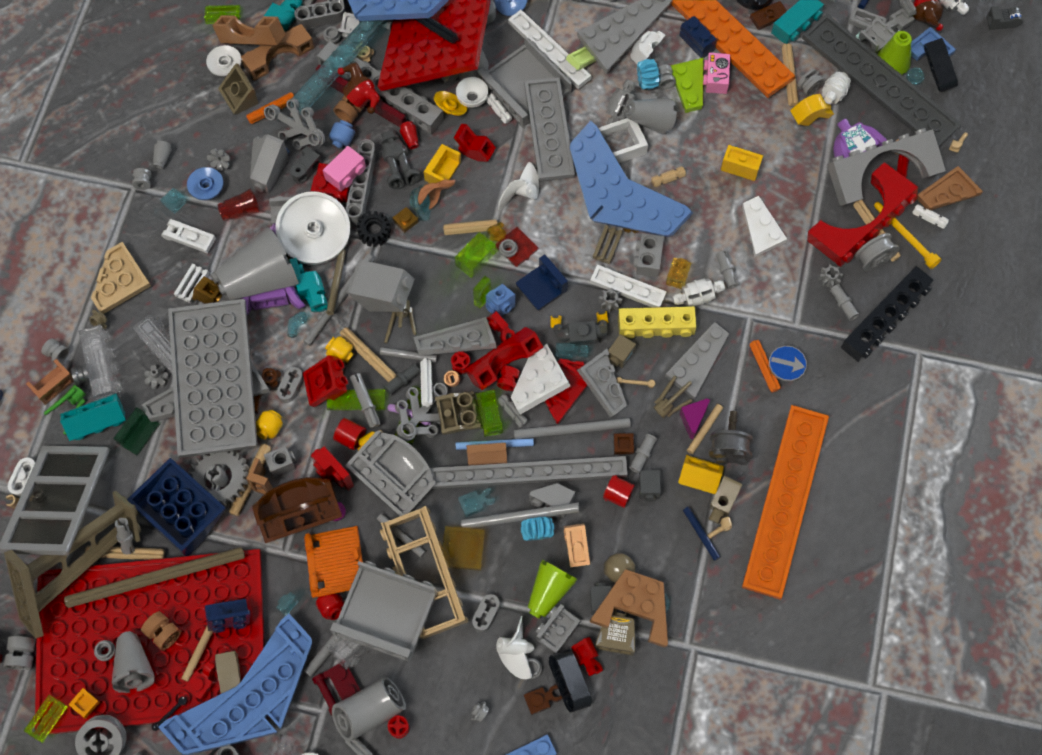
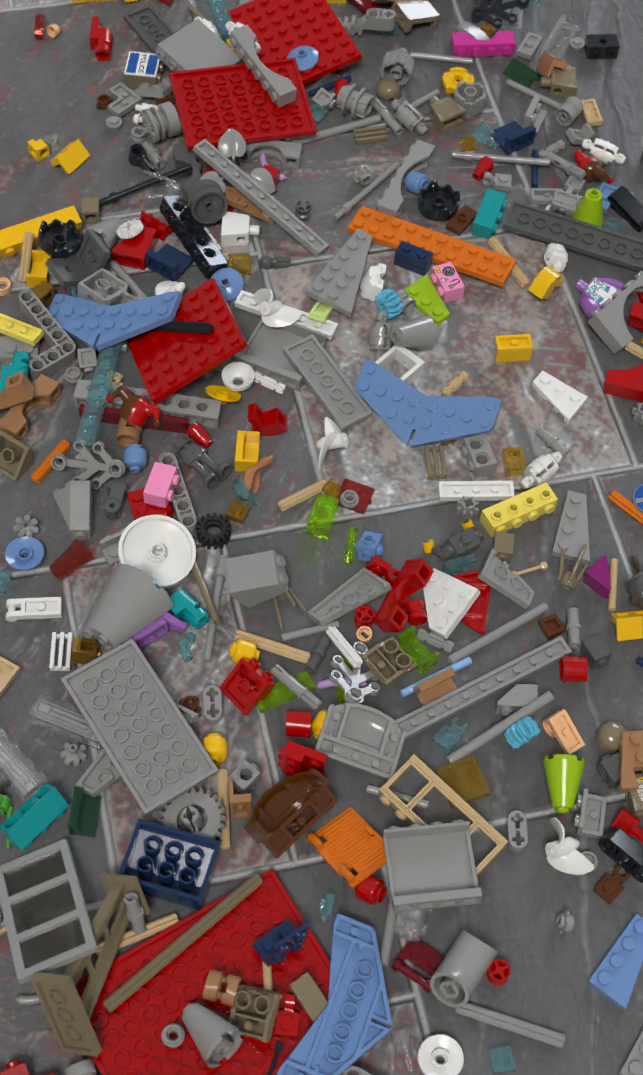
camera: 30 degrees left, 10 degrees down
(175, 662) = (255, 1012): none -> dark tan slope
(535, 43) = (273, 311): none -> white piece
(543, 284) = (399, 516): dark blue bracket -> none
(811, 82) = (531, 261): light grey wheel -> none

